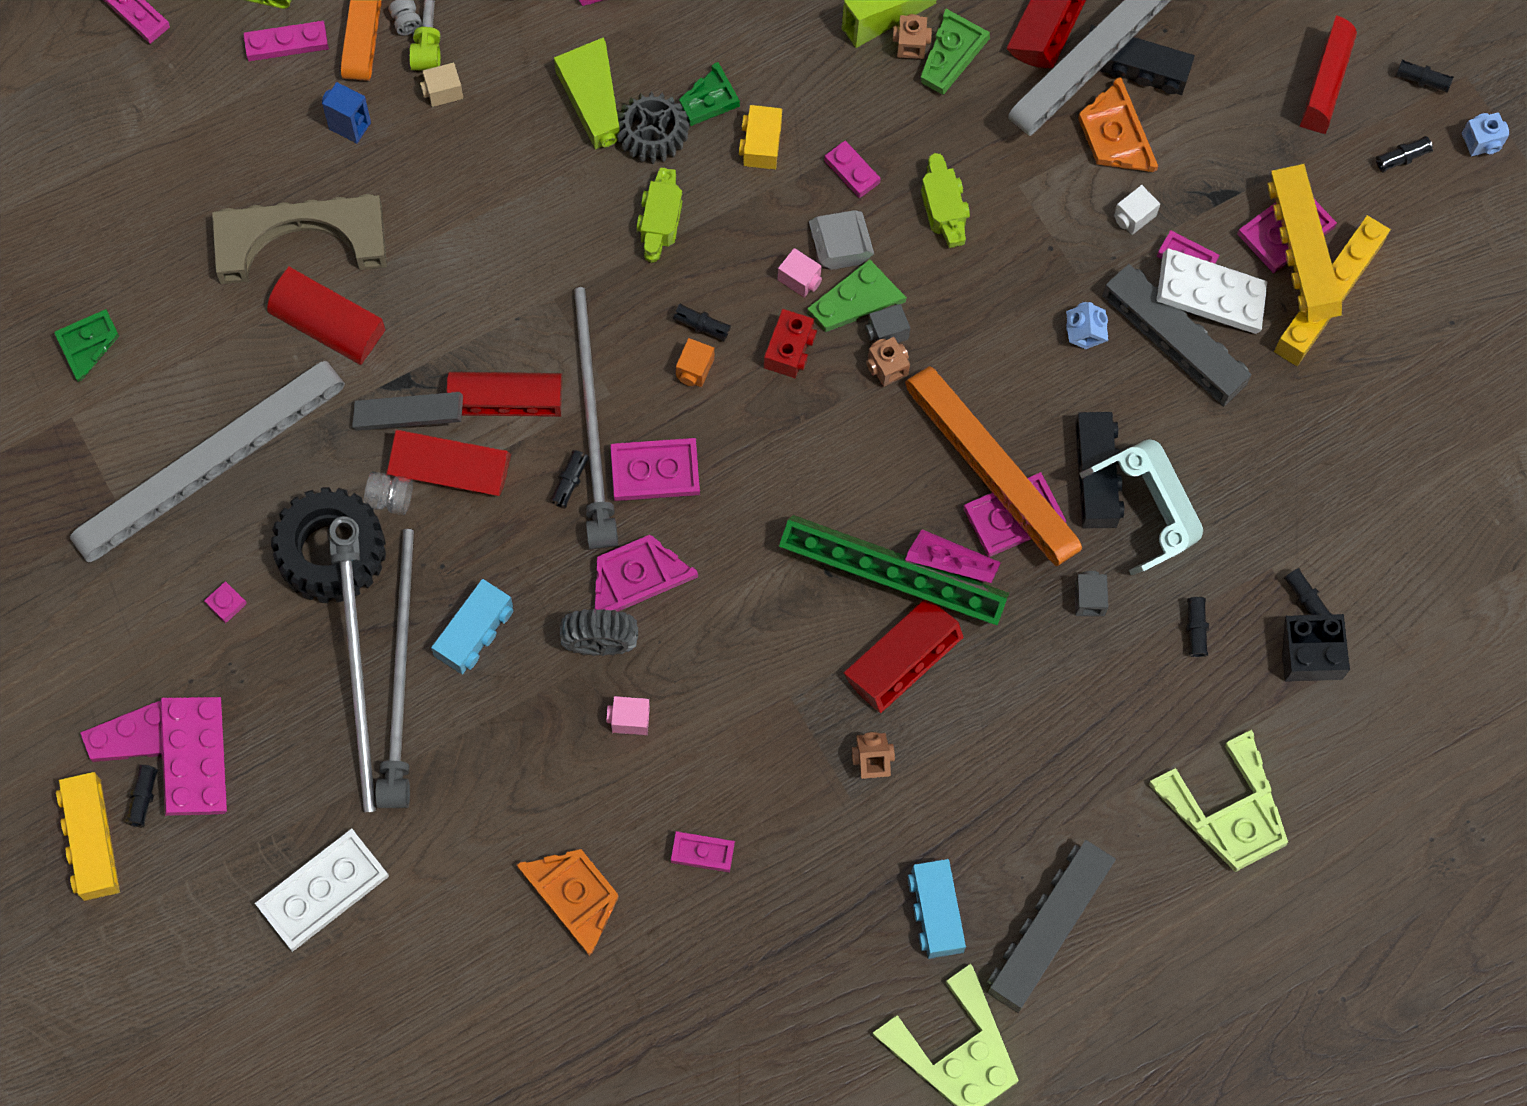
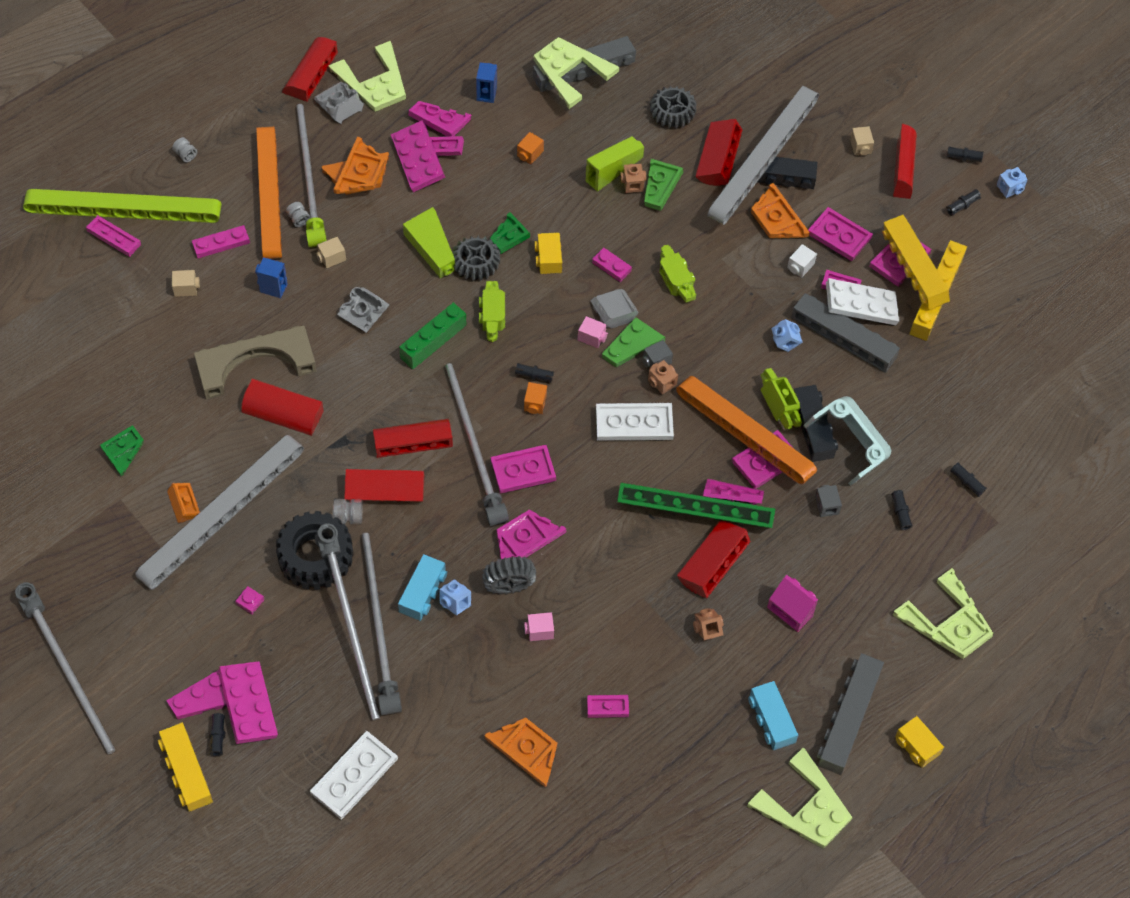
camera: 10 degrees left, 10 degrees down
(159, 436) = (183, 501): none -> orange slope
(221, 99) = (185, 283): none -> tan brick
(408, 411) = (350, 457): dark grey tile -> none
(471, 180) = (362, 308): none -> light grey slope
(516, 650) = (455, 597): none -> light blue brick
(564, 240) = (432, 335): none -> green brick
(569, 479) = (467, 484): black pin -> none
(789, 344) = (594, 376): red brick -> none
(832, 423) = (634, 421): none -> white plate
(1002, 745) = (793, 603): none -> dark pink slope
(1055, 425) = (781, 399): none -> lime hinge
(1140, 986) = (919, 742): none -> yellow brick
(1204, 175) = (840, 234): none -> dark pink plate
(1271, 30) = (862, 140): none -> tan brick
(1315, 648) = (981, 510): black slope -> none

